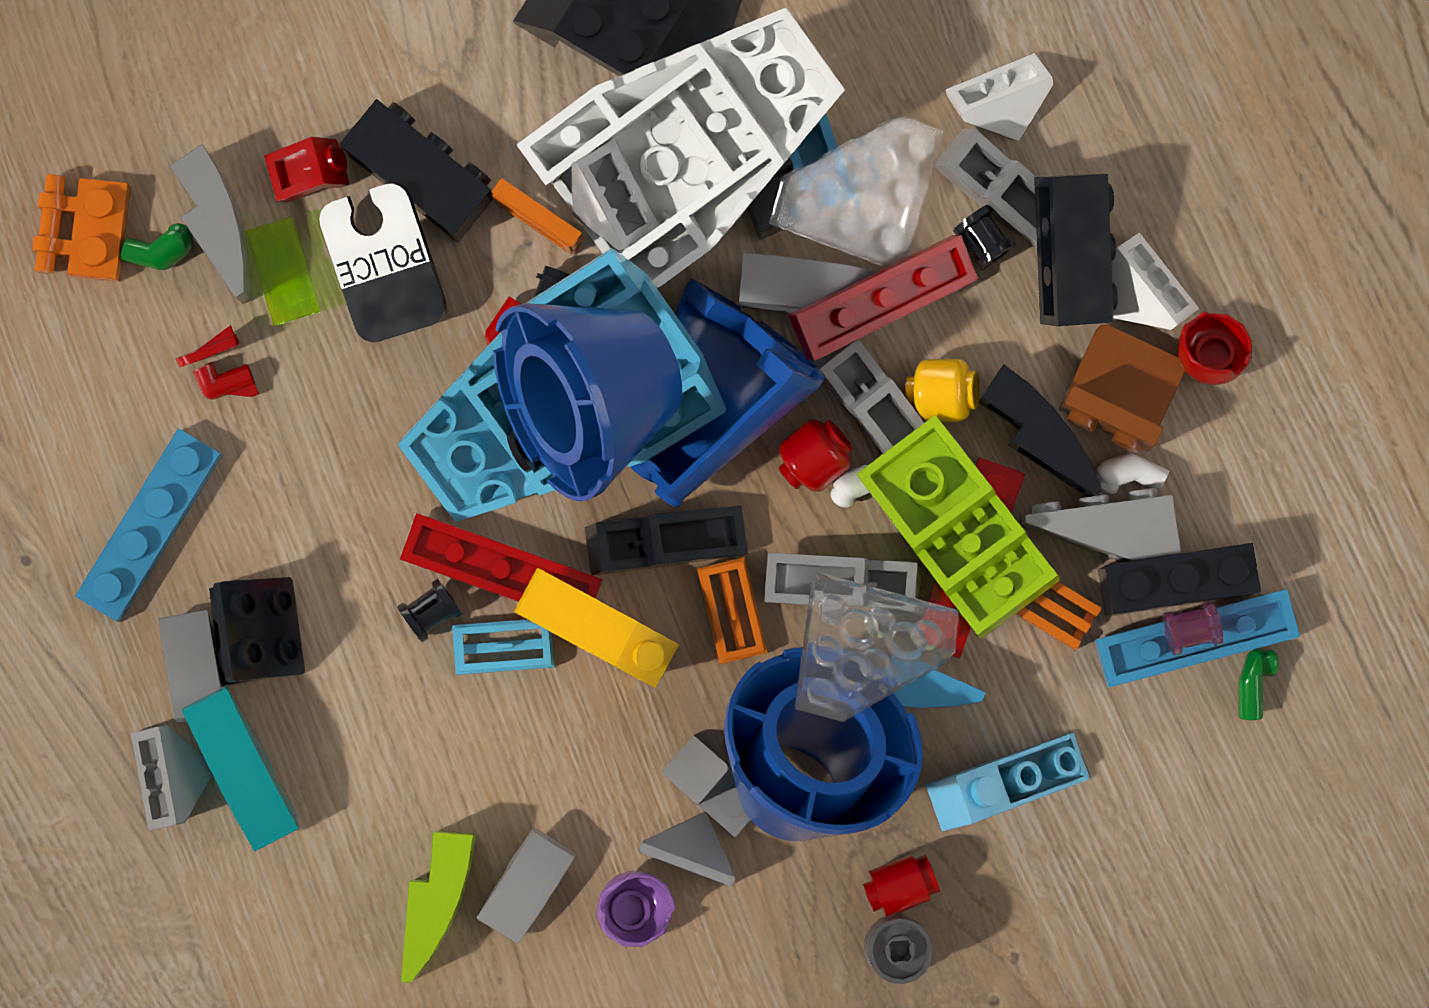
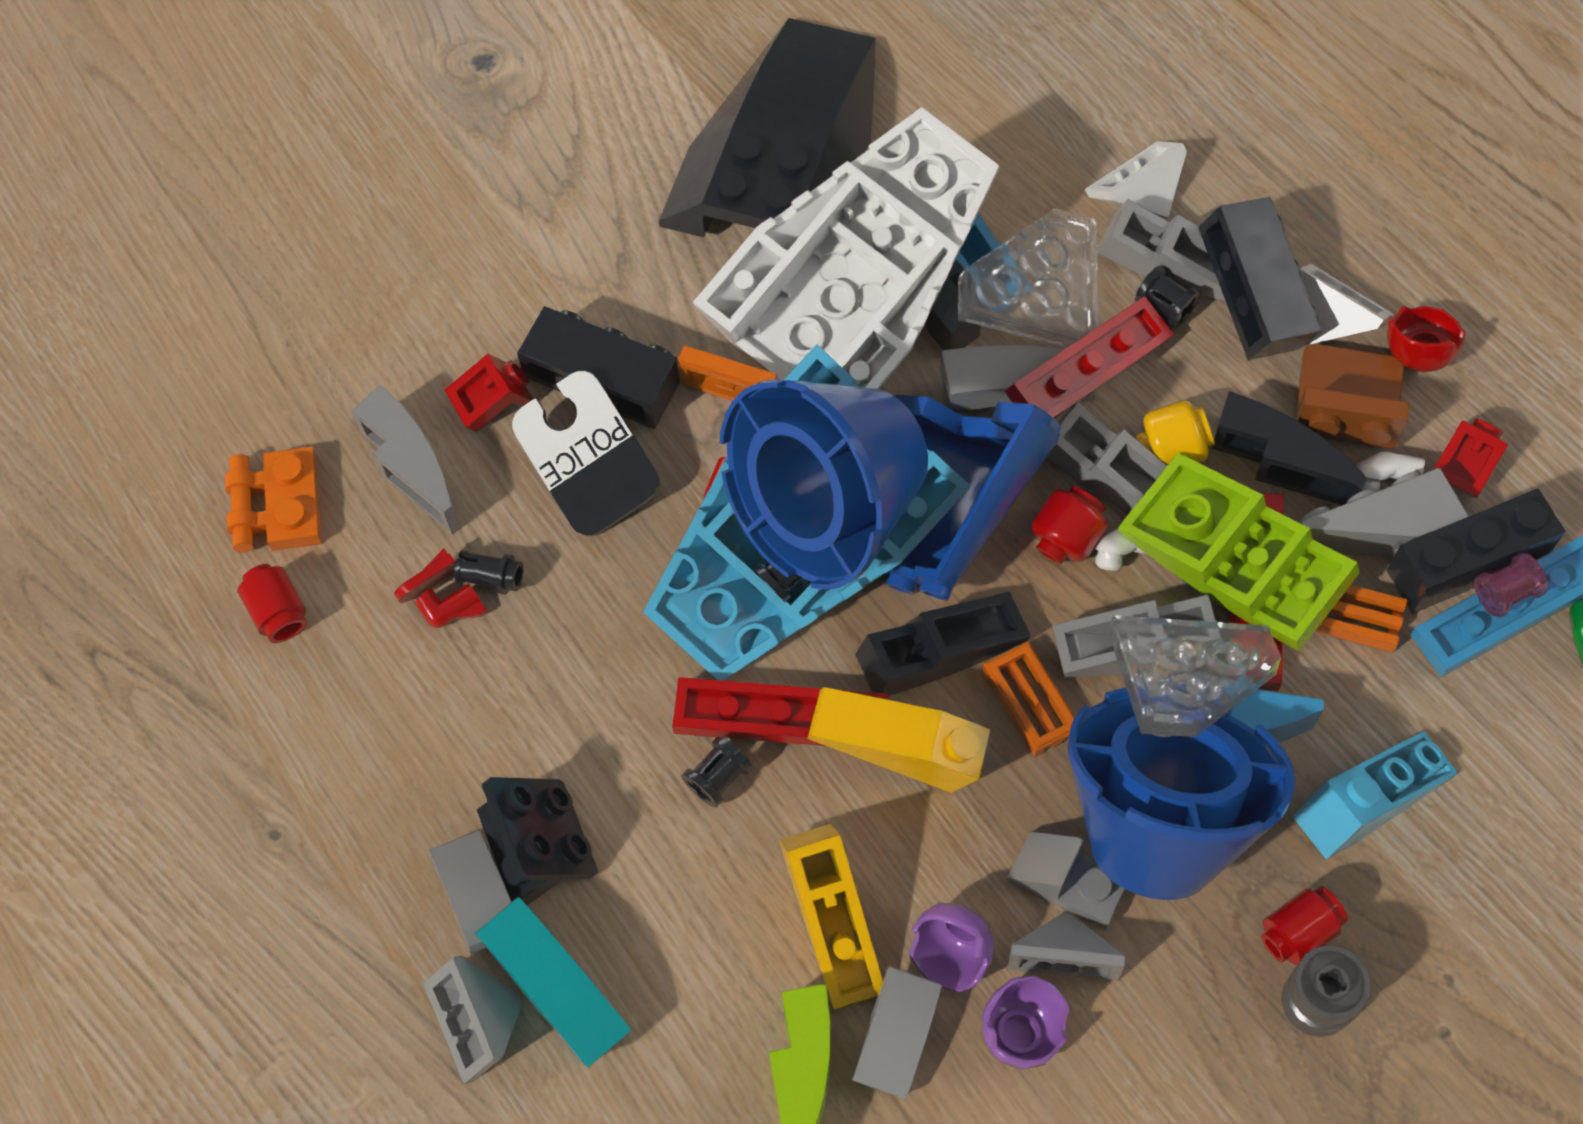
camera: 10 degrees left, 20 degrees down
(61, 338) = (272, 603): none -> red brick
(148, 525) = (398, 766): dark azure plate -> none
(161, 253) = (360, 501): green arm -> none
(268, 357) = (490, 571): none -> black pin
(283, 270) = (486, 489): clear neon green slope -> none
(461, 650) = (809, 811): medium azure tile -> none
(497, 766) = (832, 915): none -> yellow slope
(593, 825) = (952, 946): none -> medium lavender hair
(610, 198) = (790, 328): light grey slope -> none
(1212, 482) = (1472, 456): none -> red bracket

